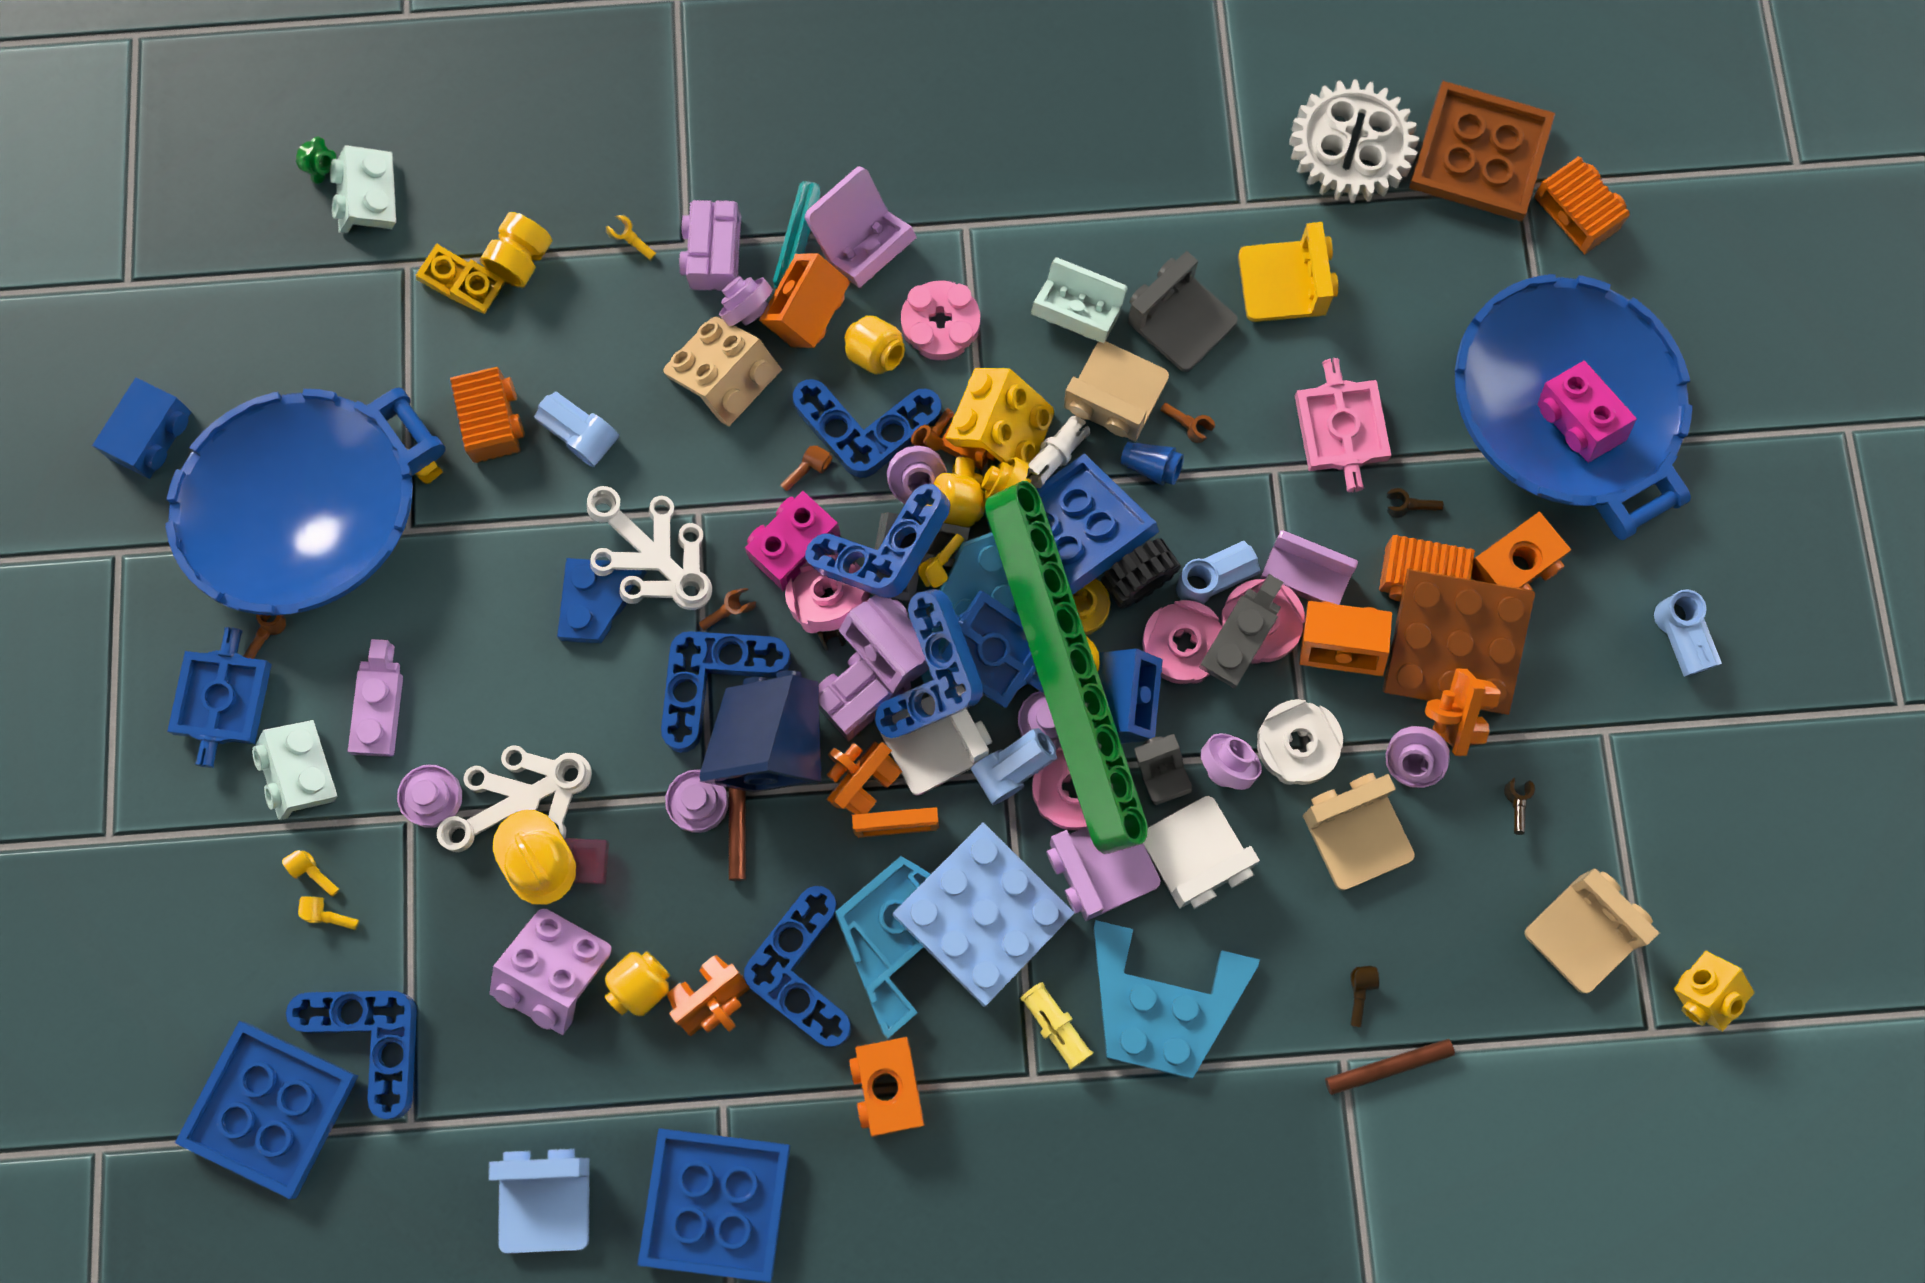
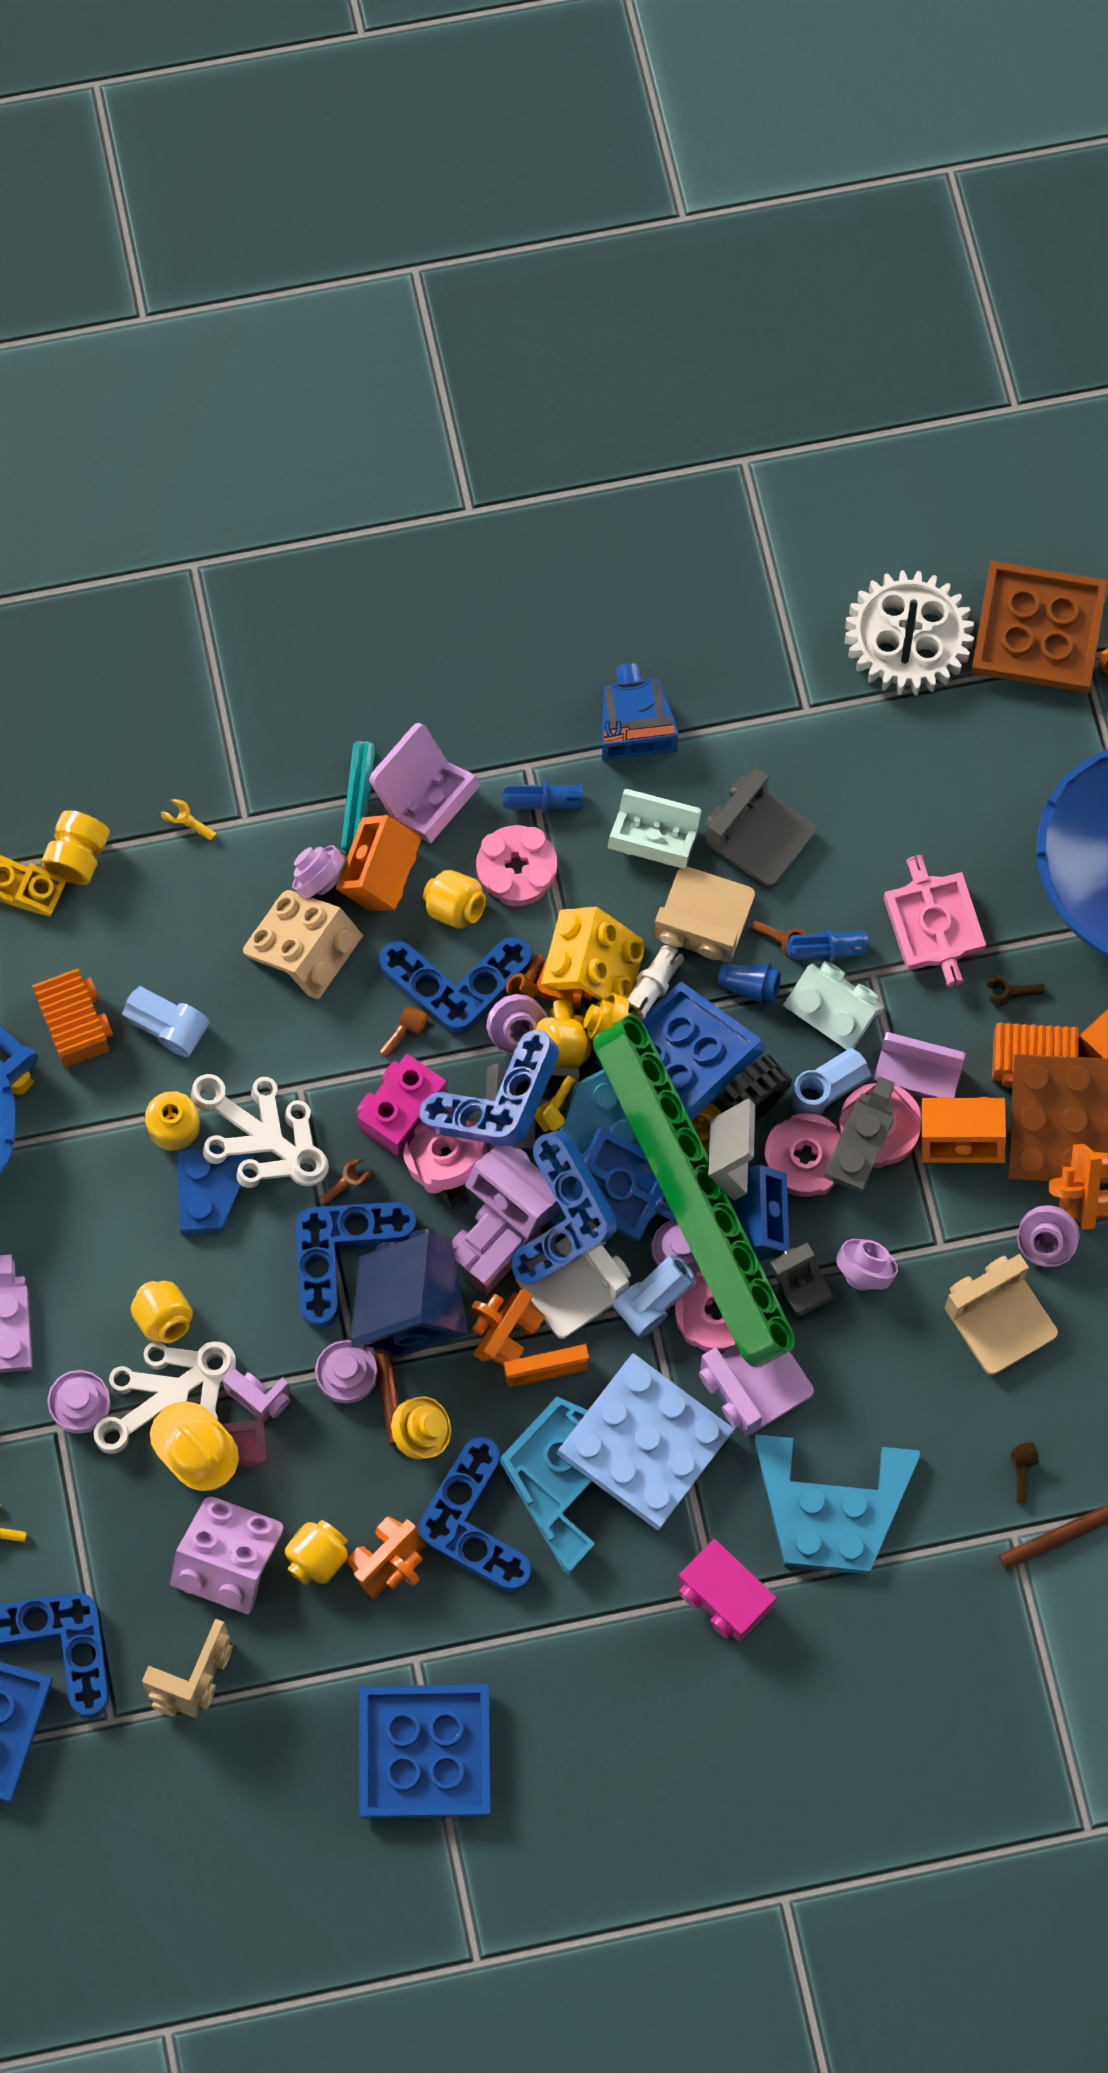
camera: 10 degrees left, 5 degrees down
(497, 1107) = (176, 1694): none -> tan bracket
(524, 716) = (161, 1311): none -> yellow head
(542, 1201) = (256, 1769): light blue bracket -> none
(565, 528) = (172, 1121): none -> yellow head
(598, 809) = (249, 1394): none -> lavender bracket
(712, 244) = (274, 818): lavender brick -> none
(761, 869) = (421, 1428): none -> yellow plate
(891, 1059) = (576, 1592): orange brick -> none
(975, 256) = (543, 797): none -> blue axle
(1042, 1082) = (725, 1591): none -> dark pink brick
(1056, 1025) = (731, 1538): light yellow pin -> none
(1076, 190) = (636, 717): none -> blue torso
(1111, 628) = (732, 1148): none -> light grey panel
(1198, 853) = (847, 1357): white bracket -> none
(1232, 494) = (833, 1004): none -> light aqua bracket
(1234, 436) = (828, 945): none -> blue axle
(1289, 277) = (861, 779): yellow bracket -> none
(1306, 719) = (926, 1260): white plate -> none

